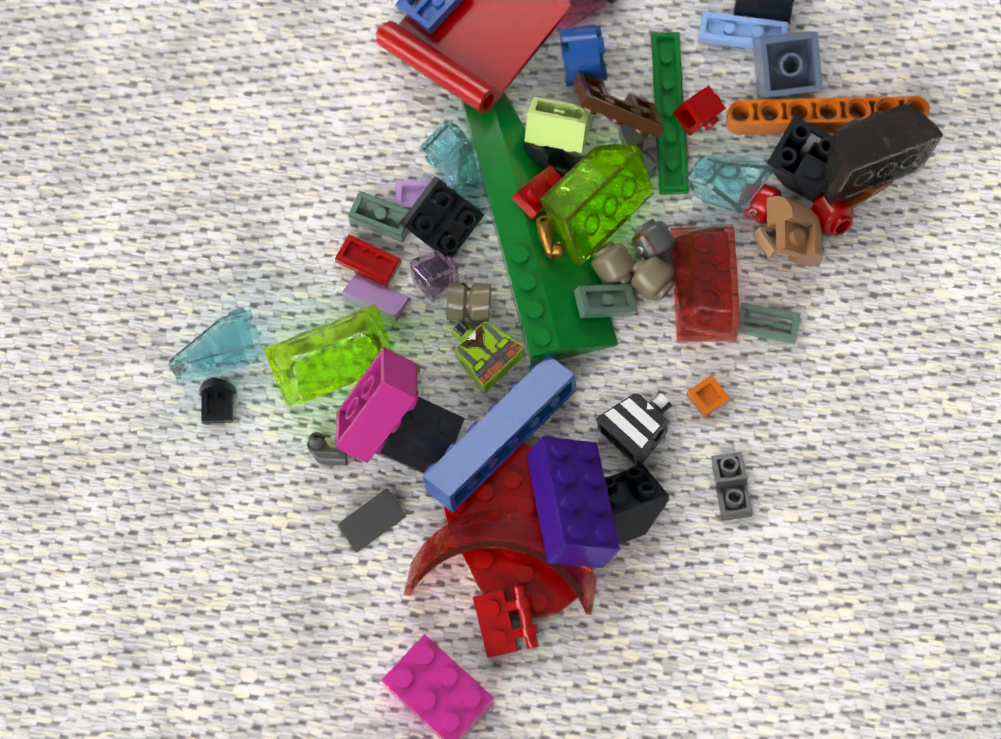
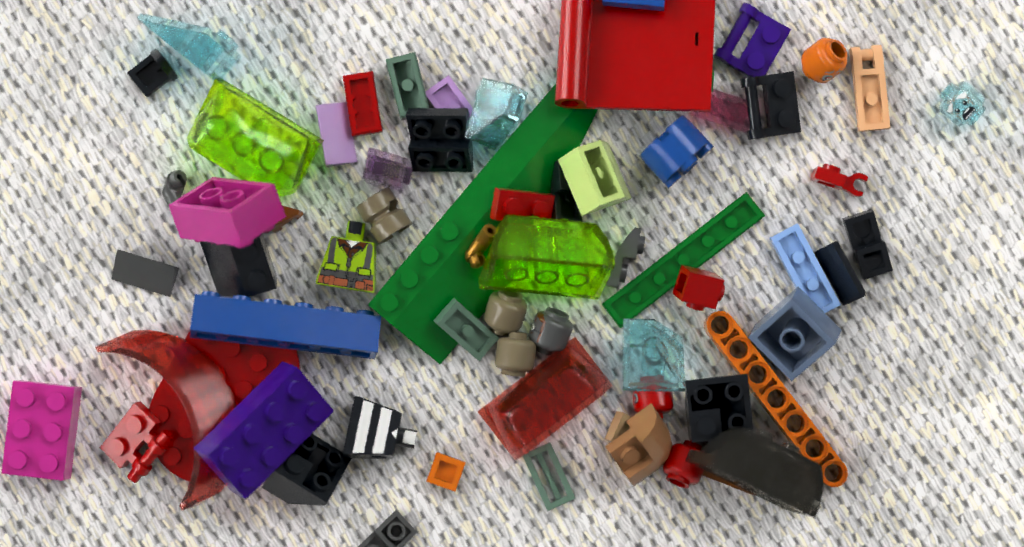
camera: 55 degrees right, 15 degrees up
(633, 111) = (649, 239): reddish brown plate -> none

